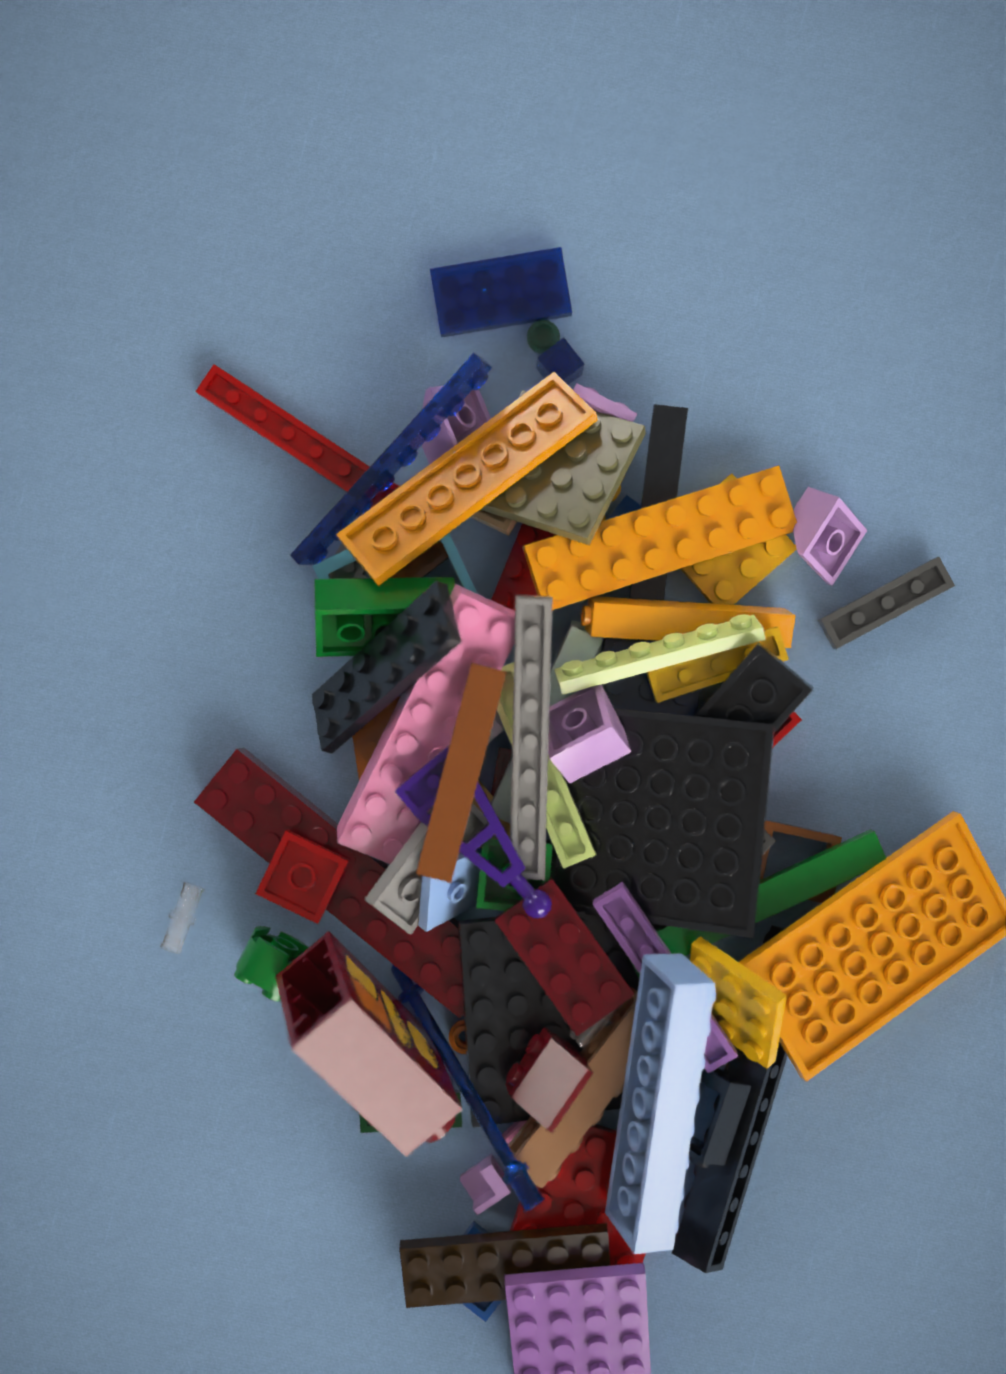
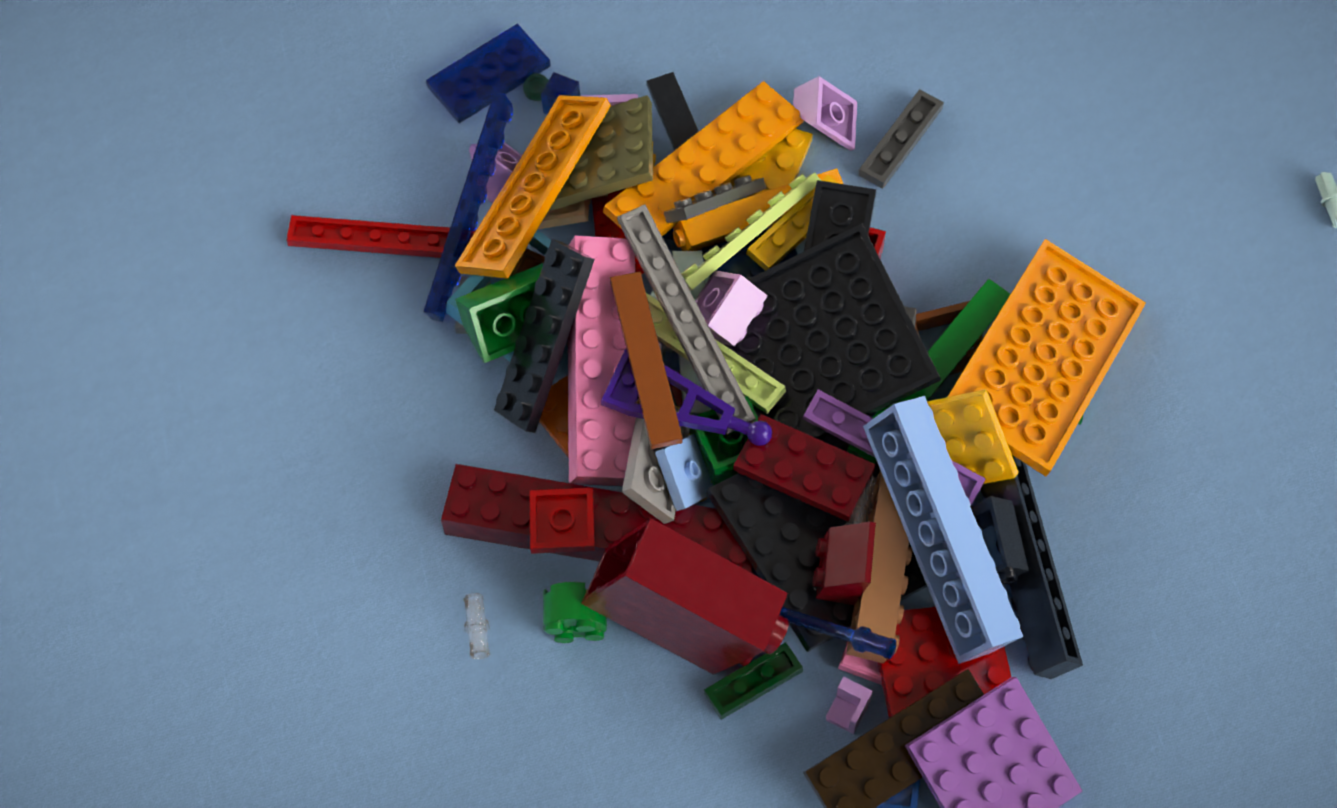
camera: 30 degrees left, 25 degrees down
(638, 595) = (708, 201): none -> dark grey plate

